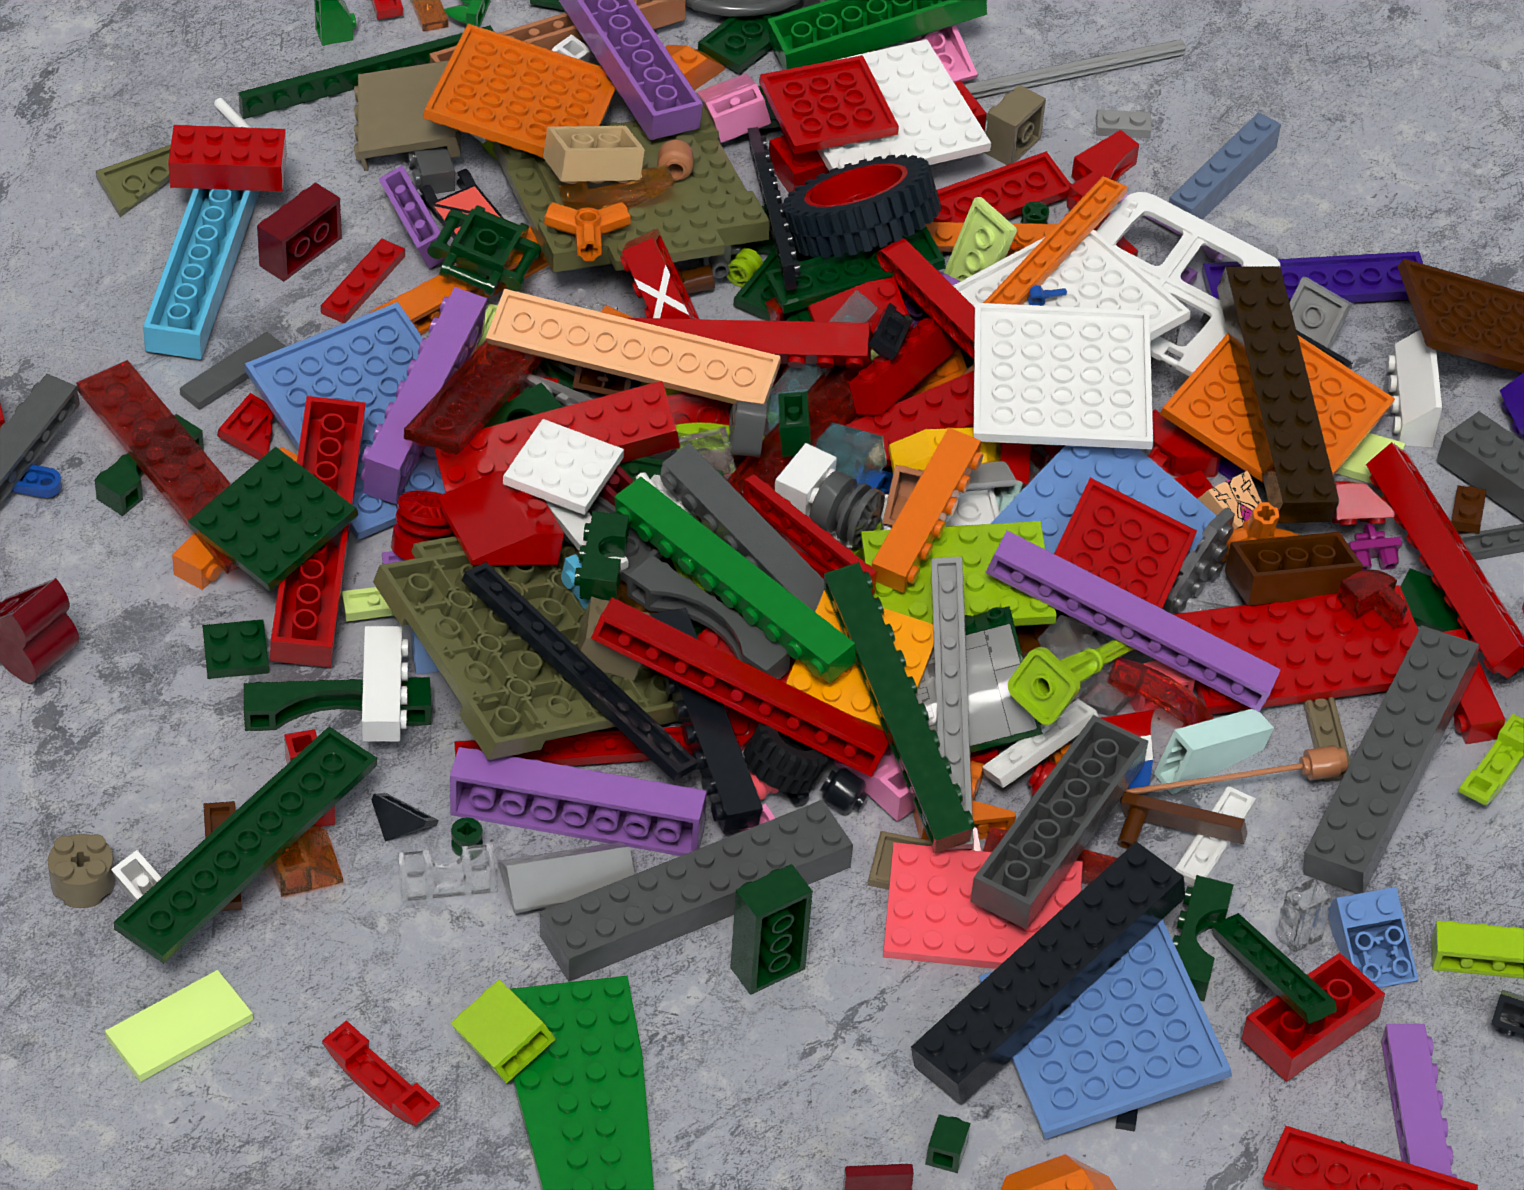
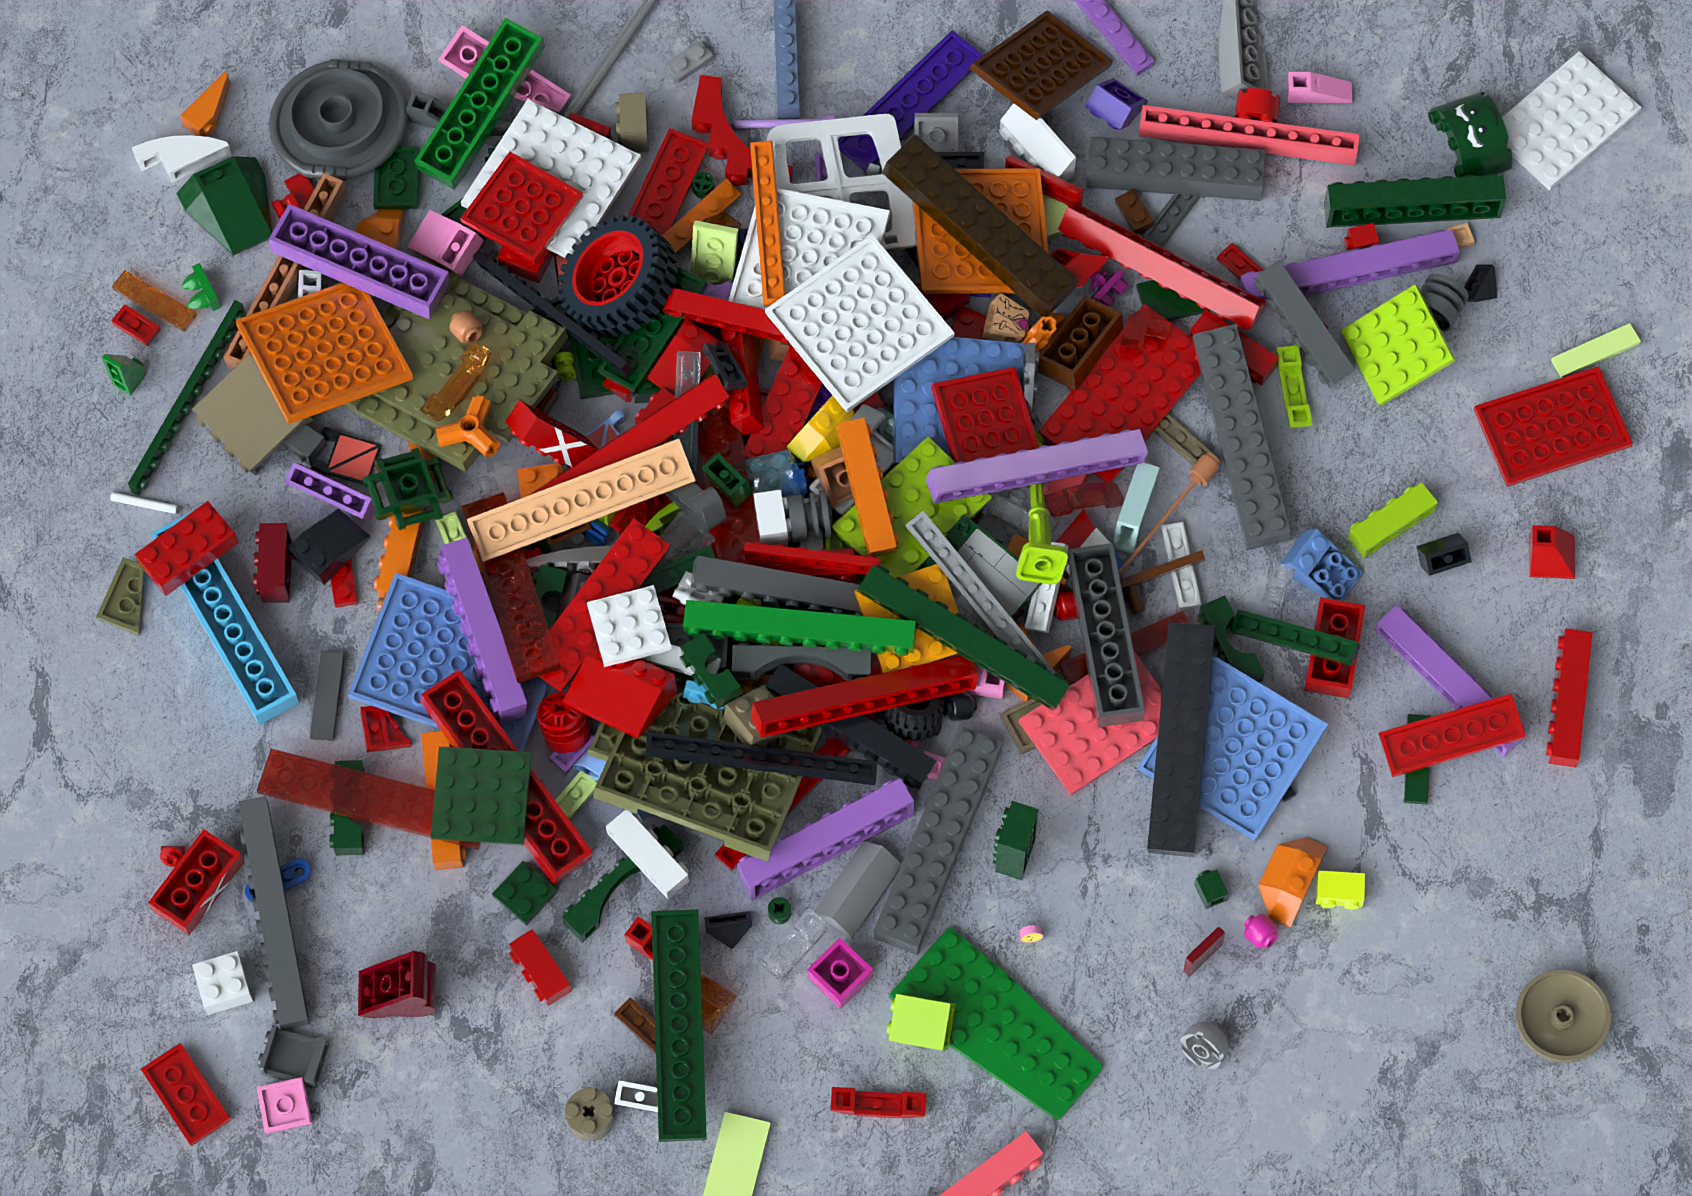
camera: 35 degrees left, 20 degrees up
(176, 715) = (539, 968): none -> red brick
(363, 250) = (328, 545): none -> black slope
(466, 929) = (840, 973): none -> dark pink brick
(593, 153) = (425, 370): tan brick -> none
(706, 1044) = (1031, 933): none -> bright pink tile
(1038, 295) = (791, 271): blue hand -> none
(1398, 428) = (1051, 185): none -> red tile

